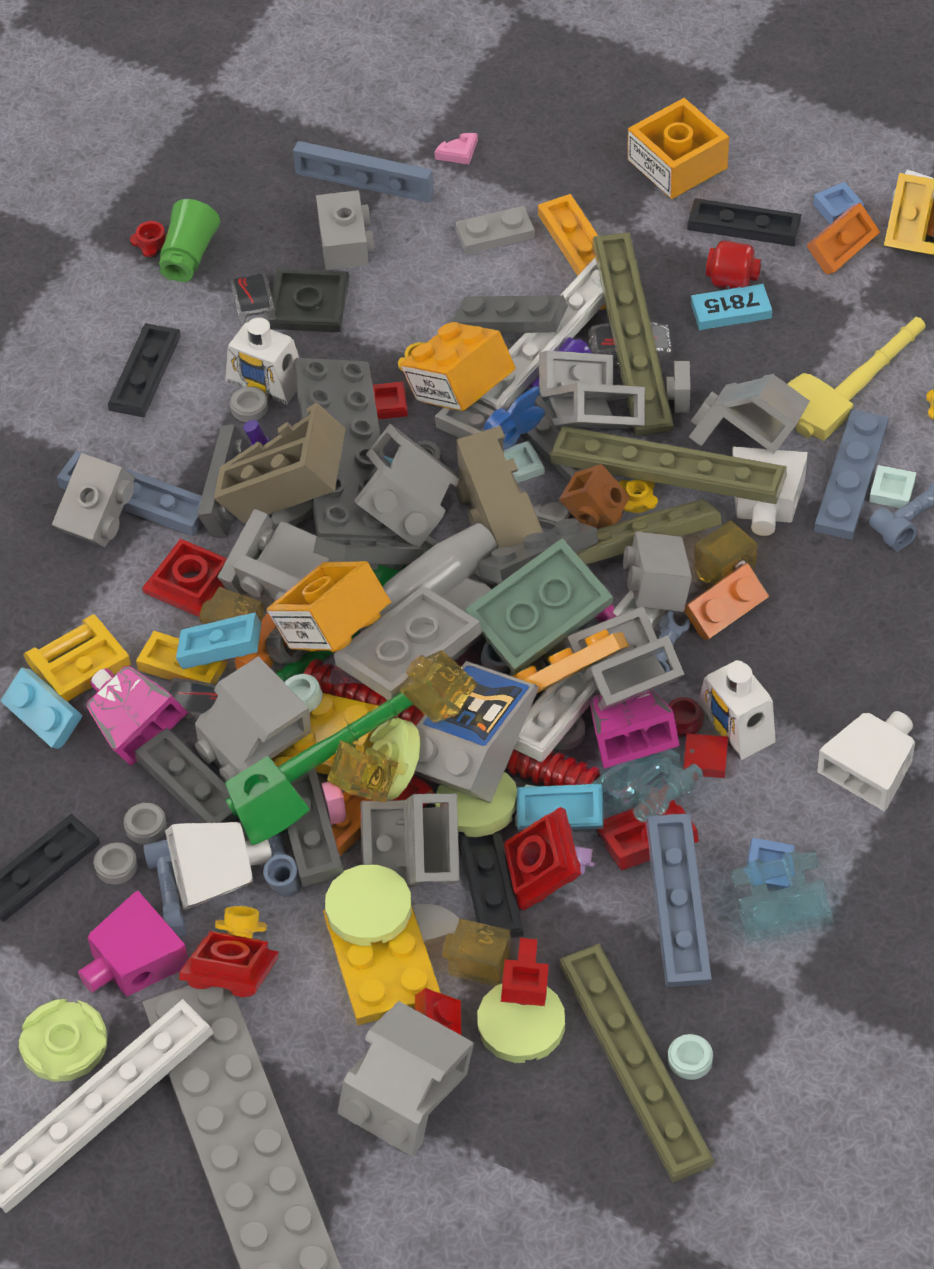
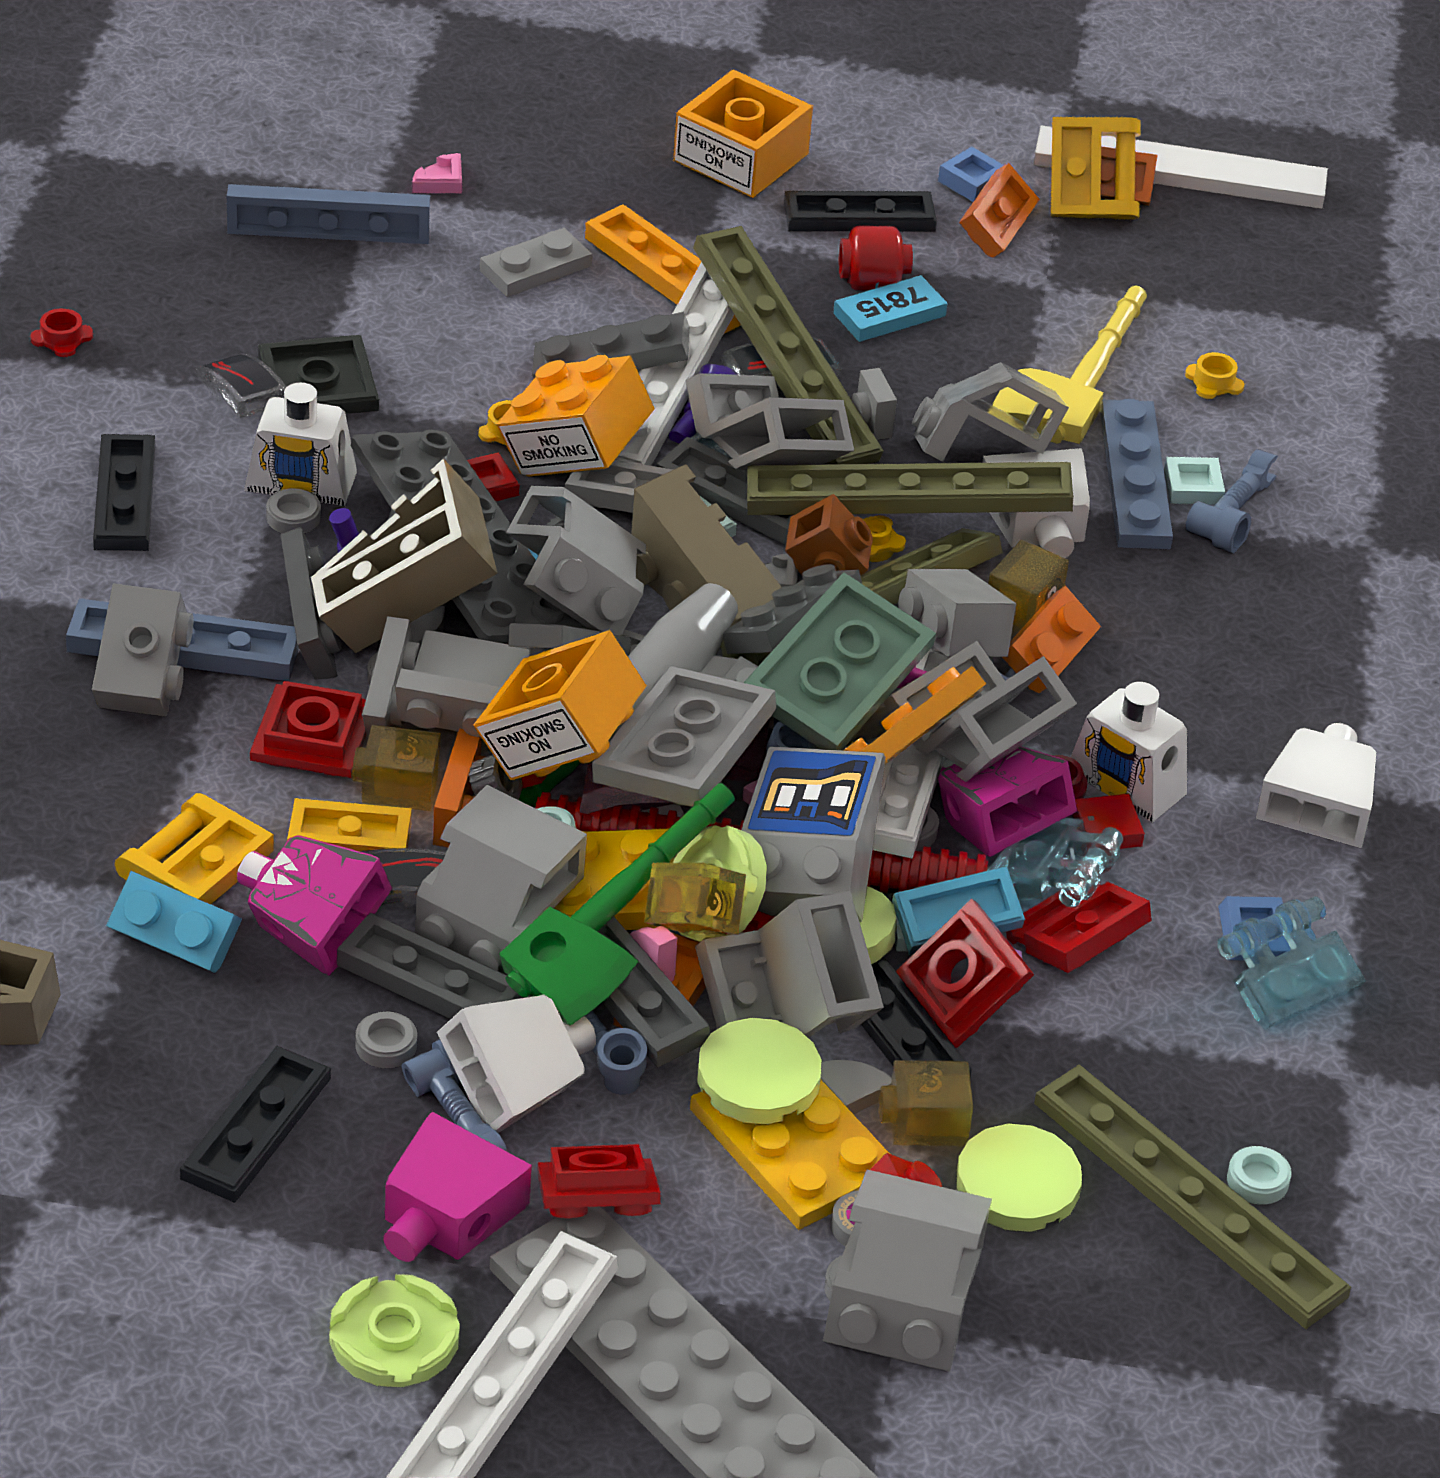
camera: 25 degrees left, 10 degrees down
(115, 863) = (367, 1096): light grey tile -> none
(187, 238) = (119, 321): bright green plant -> none
(218, 640) = (406, 786): medium azure plate -> none
(241, 921) = (585, 1129): yellow plate -> none
(343, 230) = (333, 285): light grey brick -> none
(437, 685) = (764, 769): clear yellow brick -> none
(519, 419) = (700, 454): blue plate -> none
(524, 979) = (1011, 1119): red plate -> none
(678, 900) = (1166, 988): sand blue plate -> none

